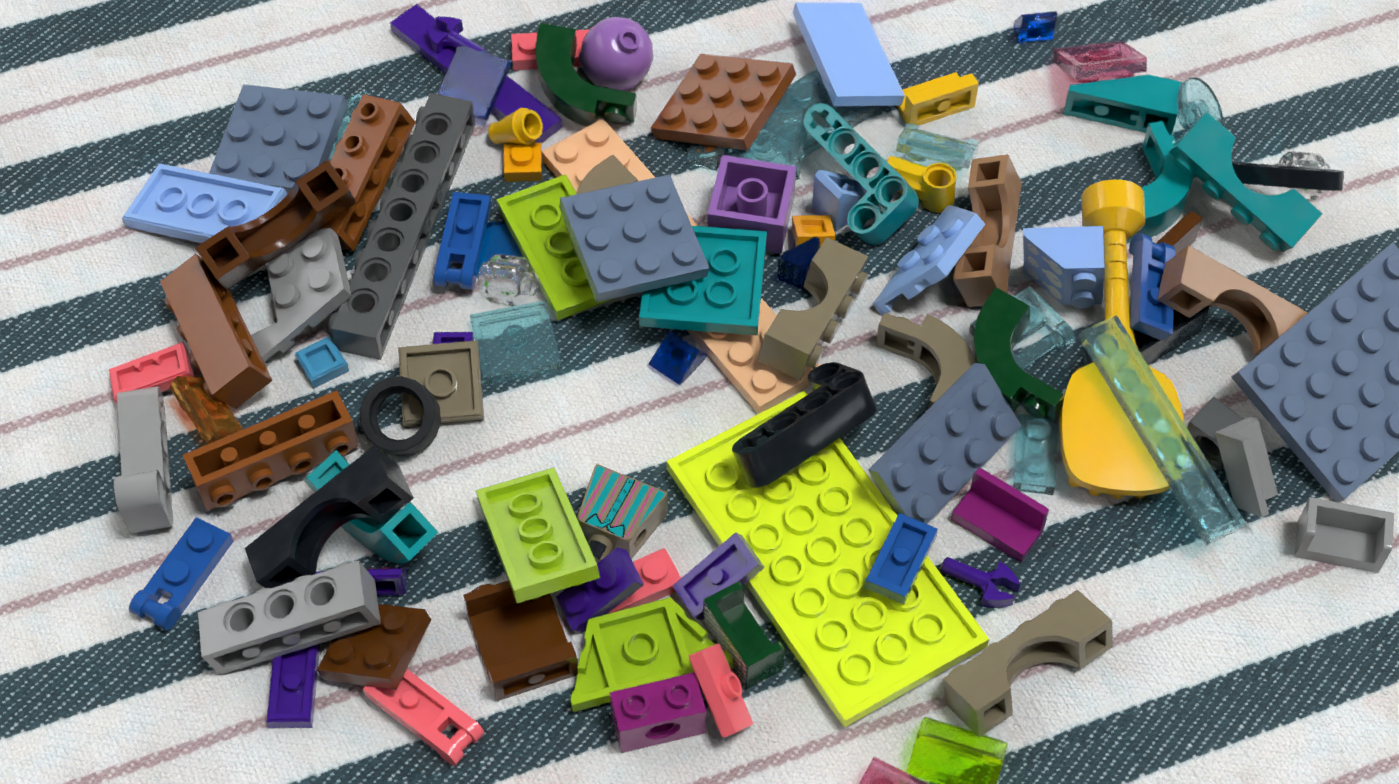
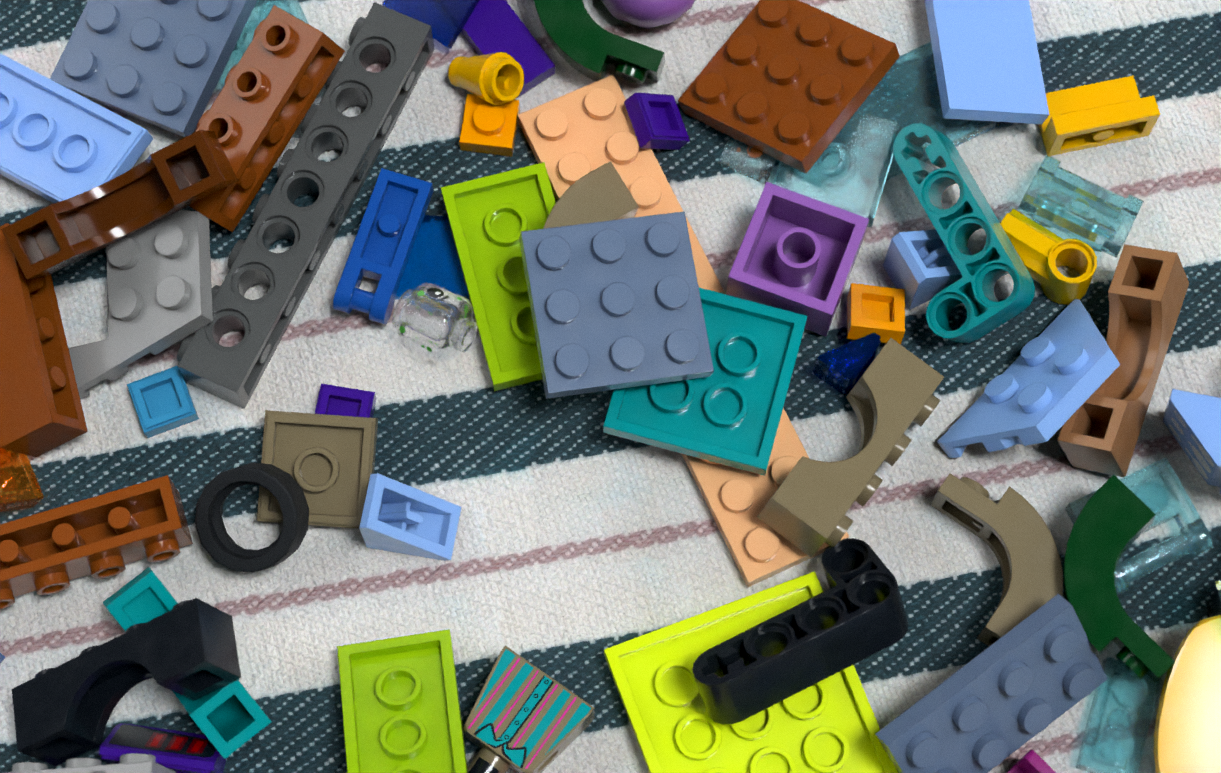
camera: 10 degrees right, 15 degrees up
(510, 404) = (408, 520): none -> light blue slope
(515, 342) = (431, 417): clear light blue plate -> none
(638, 140) = (656, 121): none -> dark purple tile
(677, 358) = (650, 480): clear blue slope -> none

